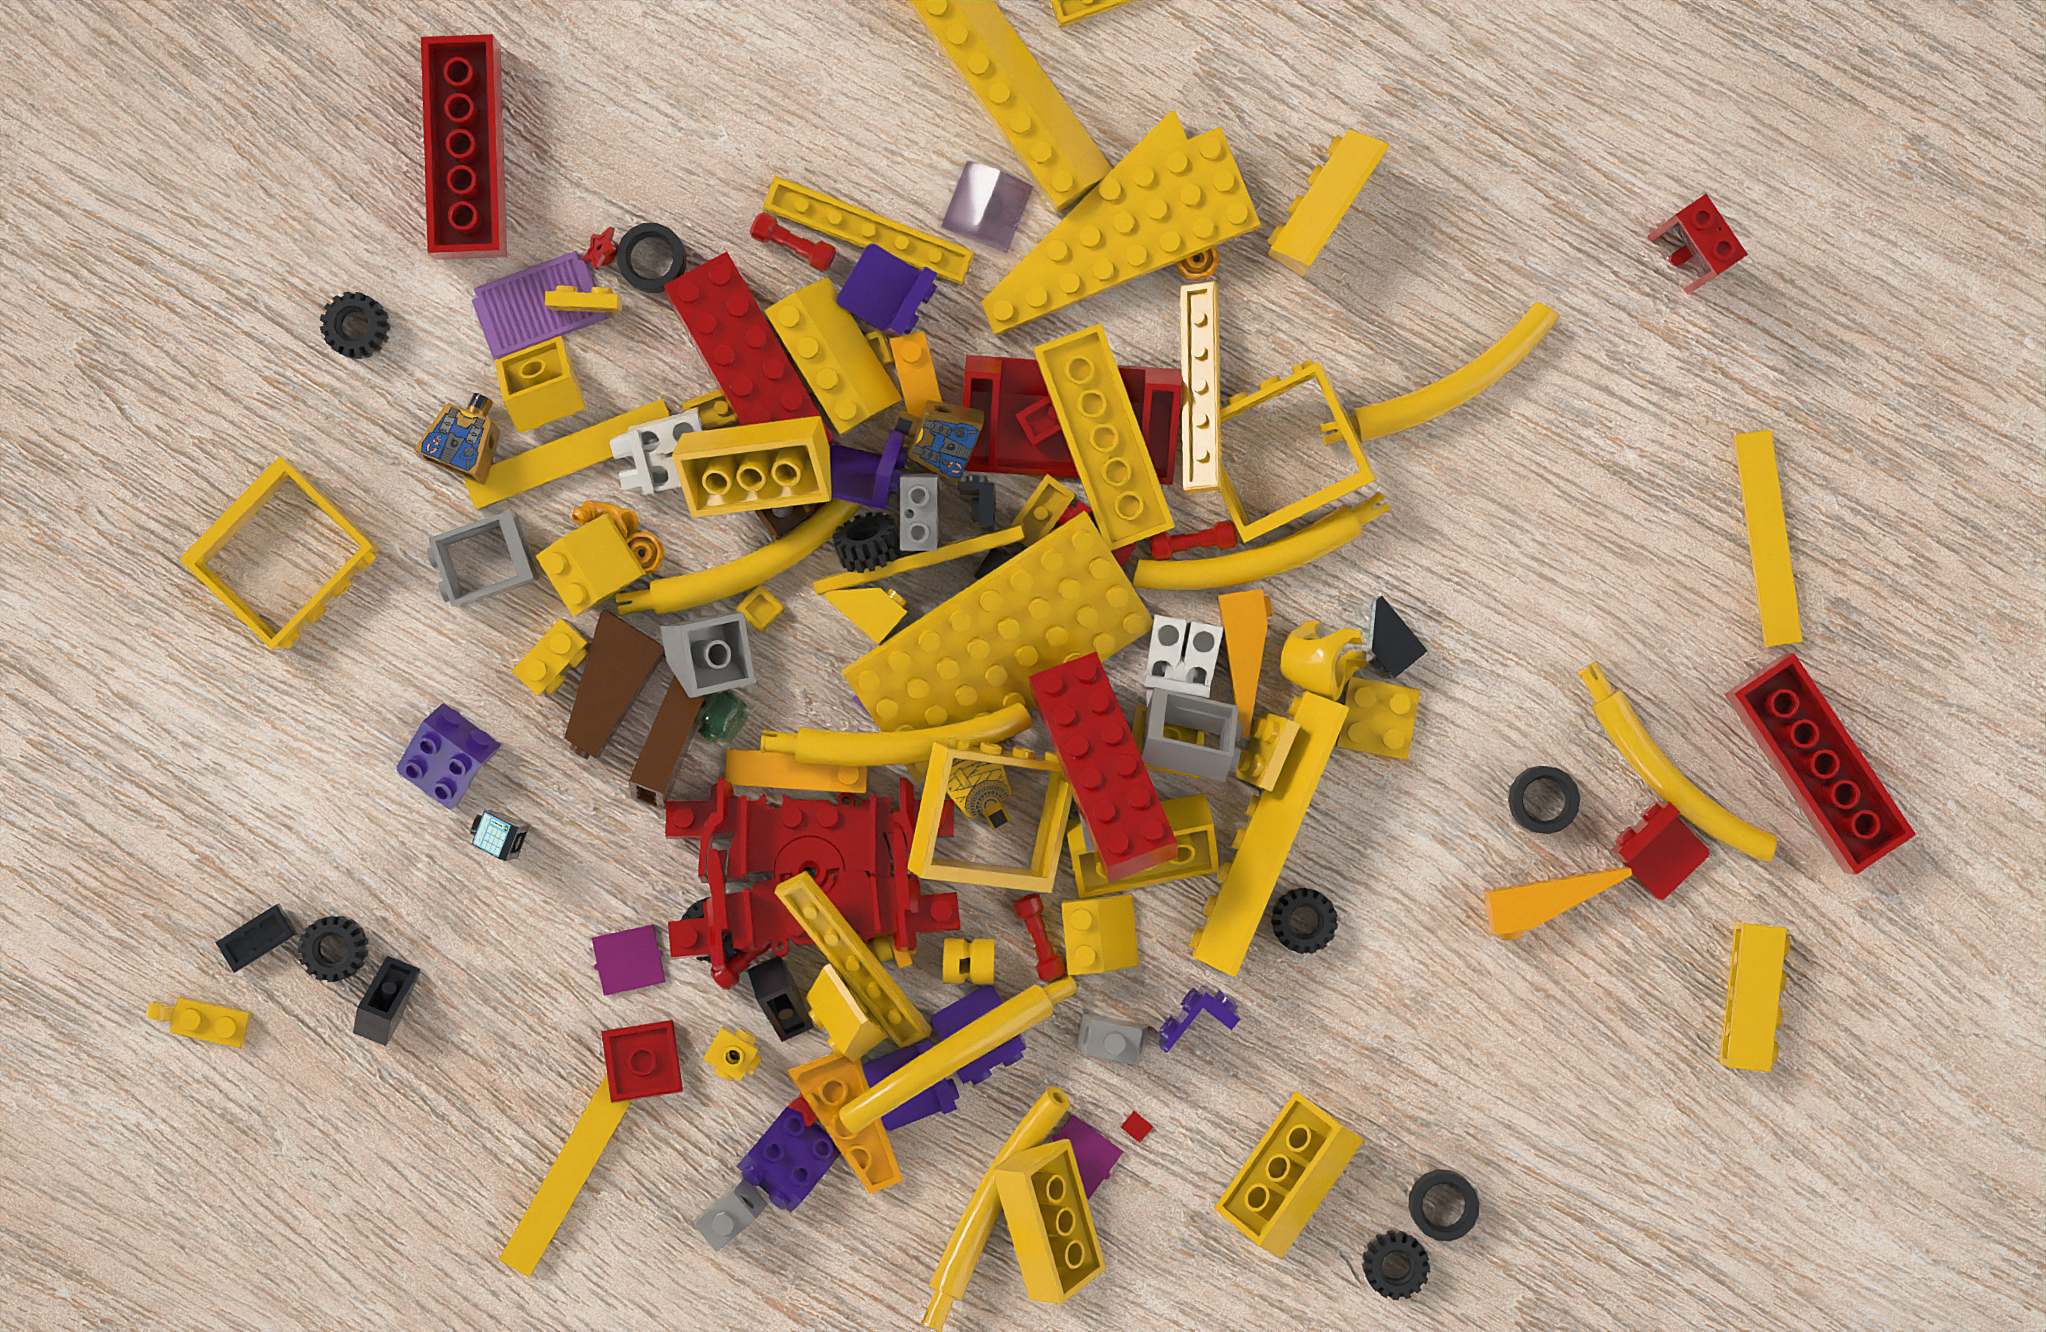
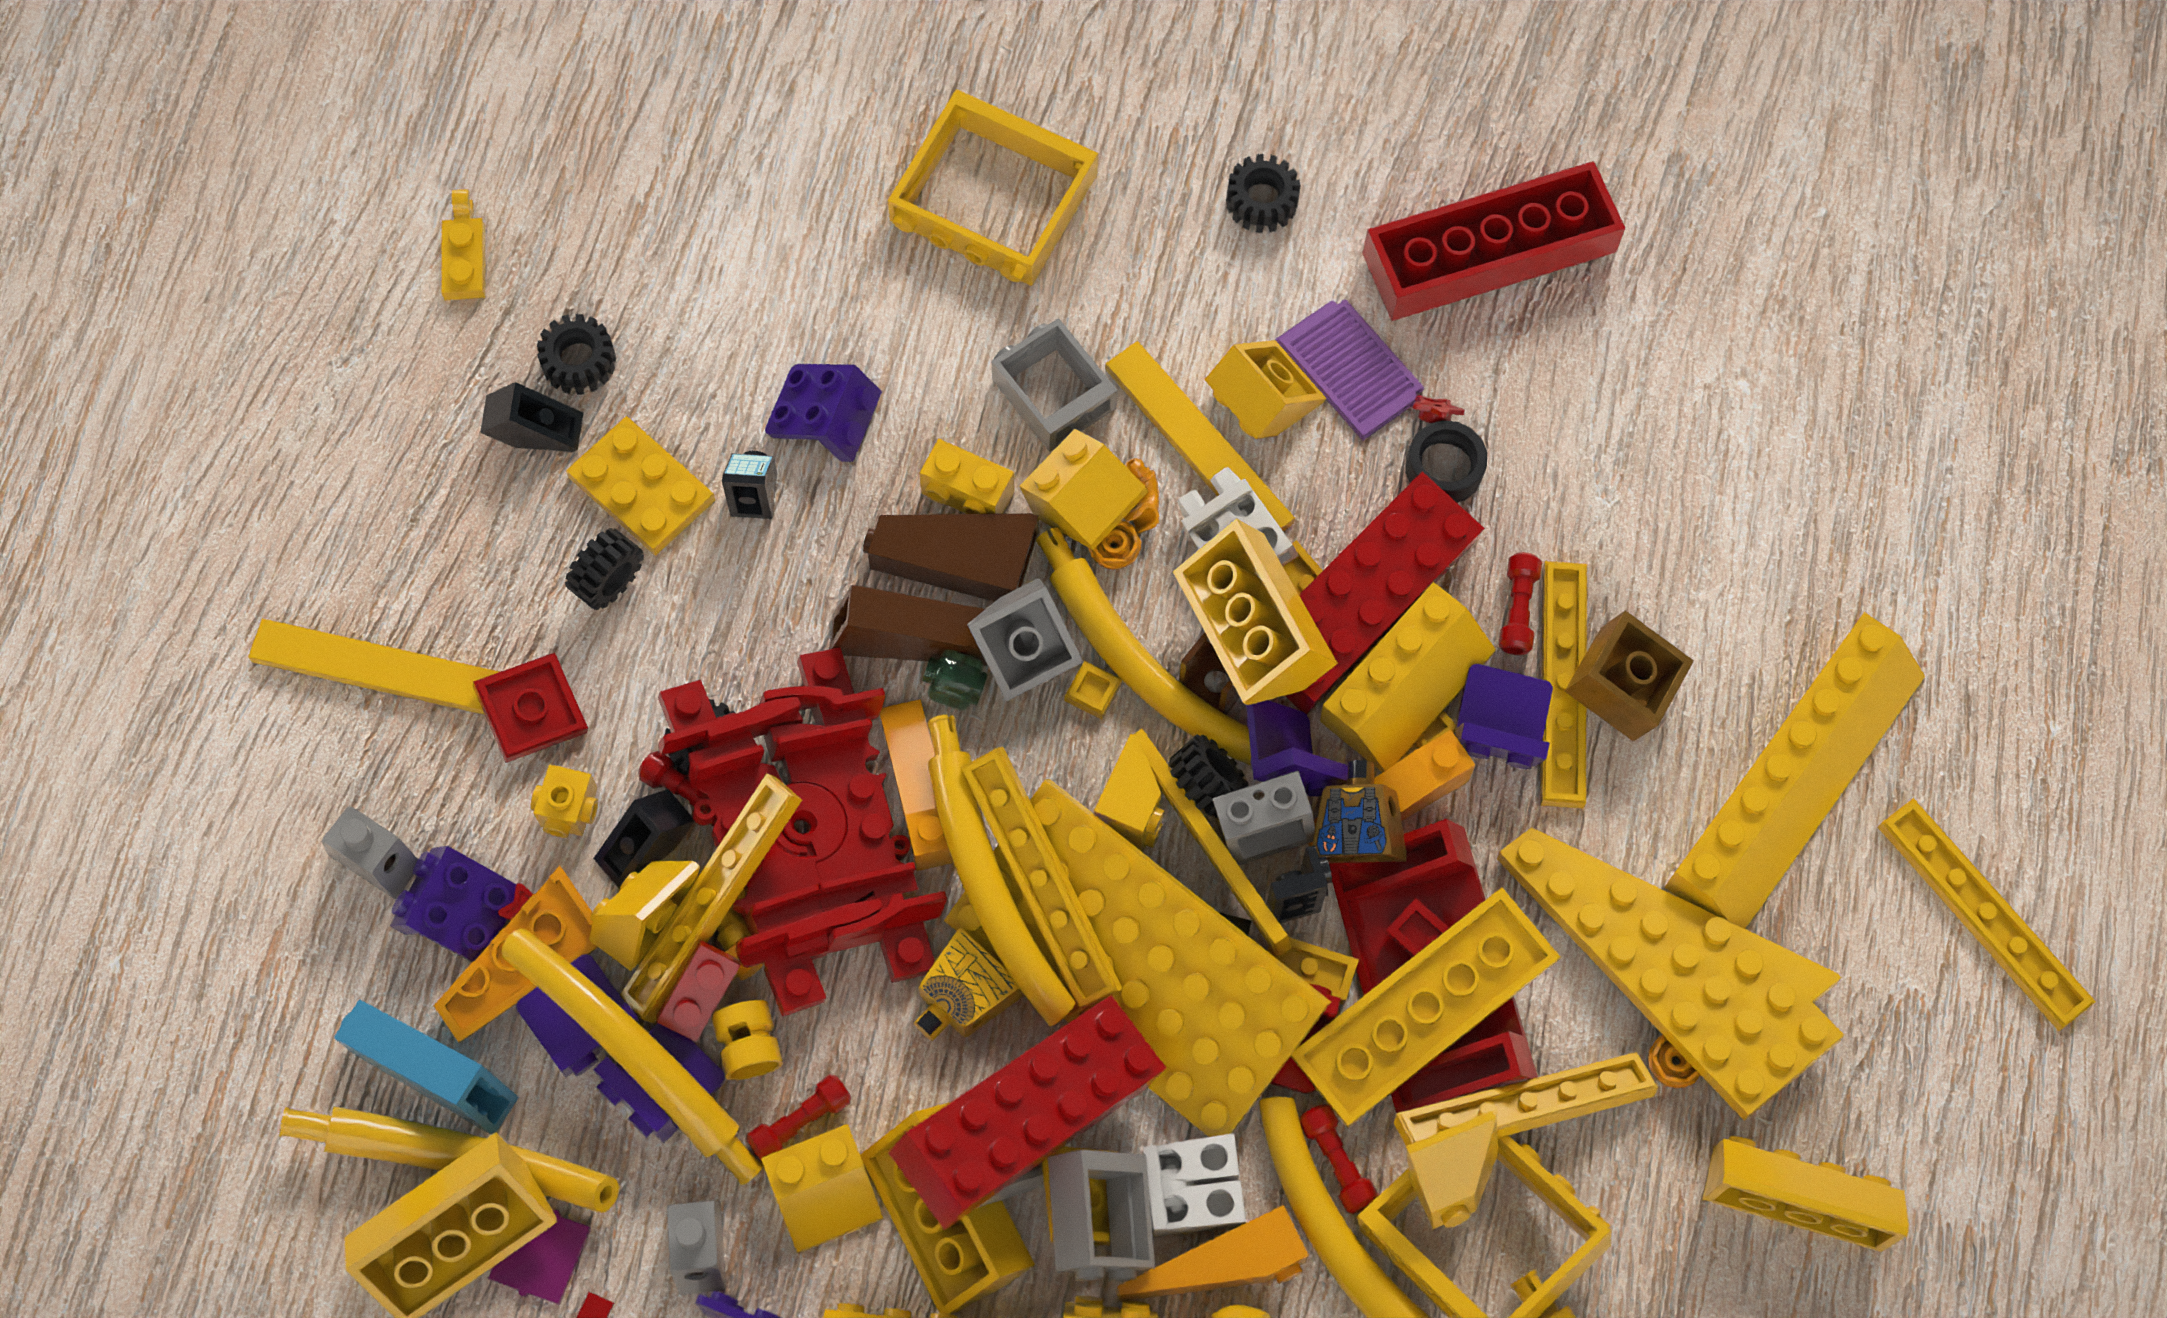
camera: 70 degrees right, 20 degrees down
(256, 938) = (568, 277): black plate -> none
(462, 439) = (1177, 326): torso -> none
(469, 924) = (640, 485): none -> yellow plate
(543, 974) = (604, 568): none -> black tyre
(568, 299) = (1369, 392): yellow plate -> none
(628, 959) = (645, 663): magenta piece -> none
(885, 180) = (1629, 676): none -> pearl gold brick
(915, 1210) = (427, 1066): none -> dark azure slope
(917, 701) = (1041, 878): none -> yellow tile
(921, 988) = (698, 990): none -> red plate
(987, 206) = (1643, 805): slope -> none
(1050, 832) = (855, 1010): yellow window -> none
(1241, 462) = (1453, 1169): none -> yellow slope

